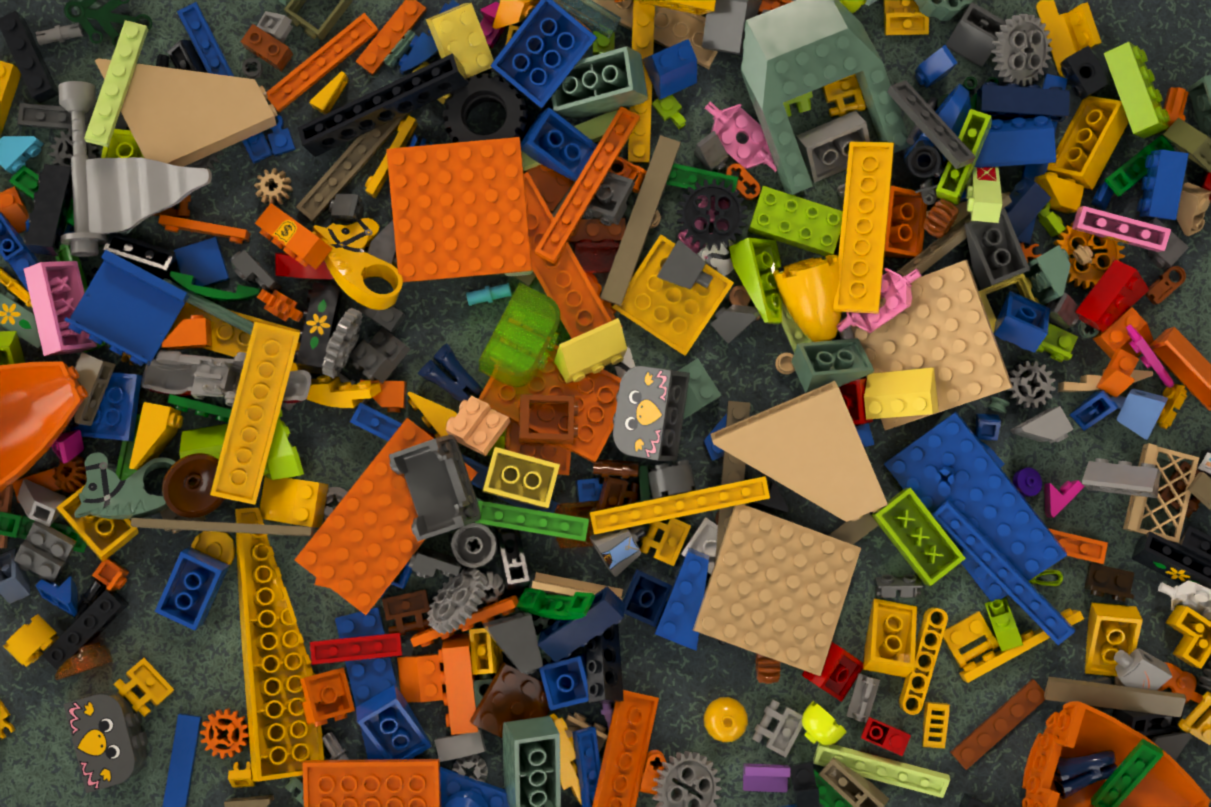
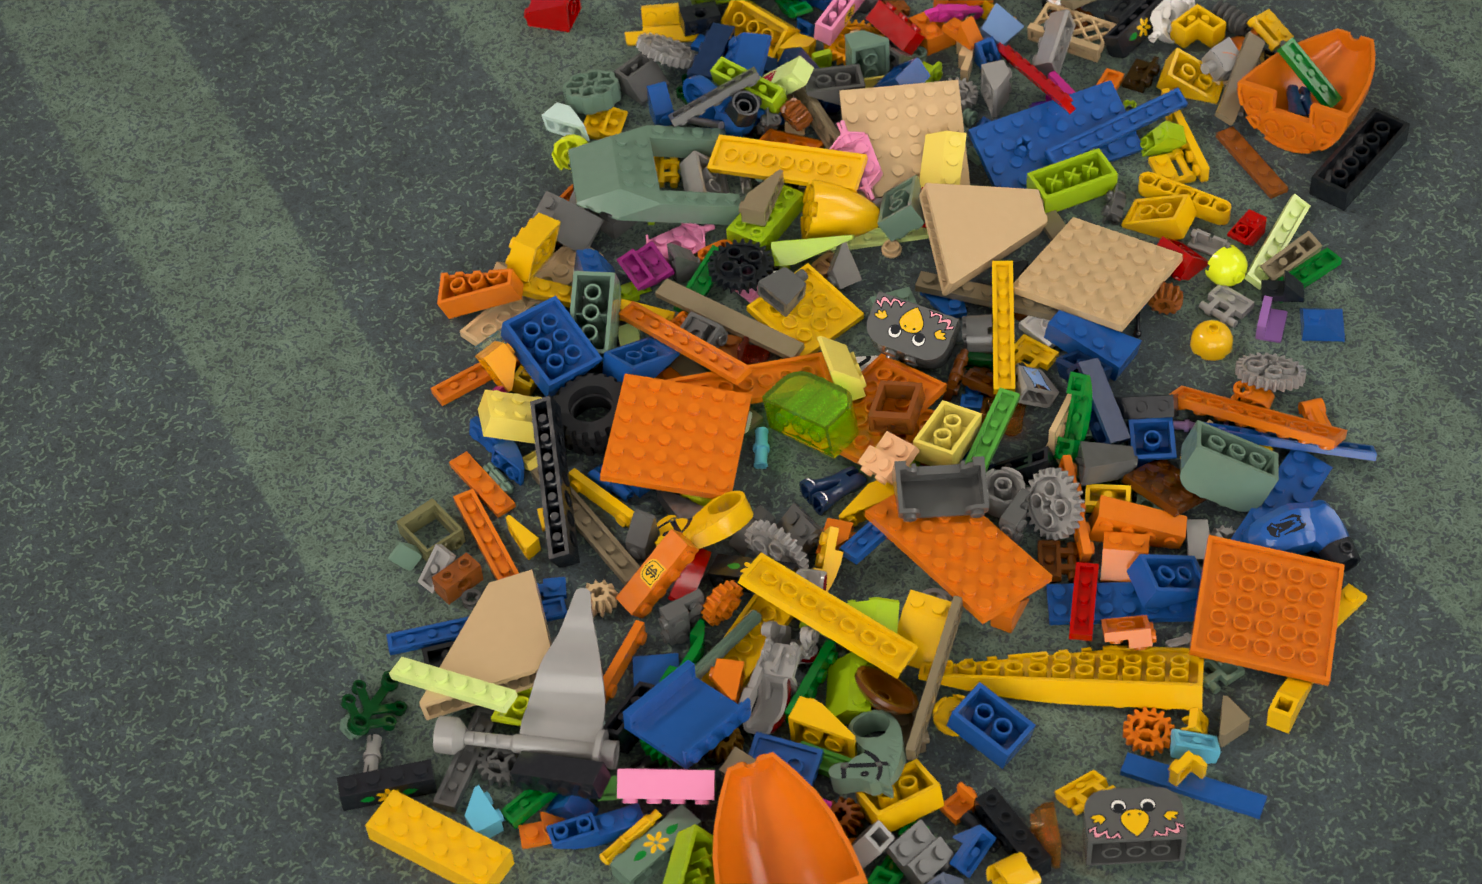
camera: 65 degrees left, 35 degrees down
(182, 771) = (1187, 763): none -> yellow bracket
(216, 779) = (1197, 743): none -> medium azure slope
(693, 115) = (645, 266): none -> magenta slope
(797, 213) = (761, 200): none -> dark tan slope
(928, 707) = (1234, 194): yellow slope -> none
(1050, 473) = (1036, 77): none -> red plate

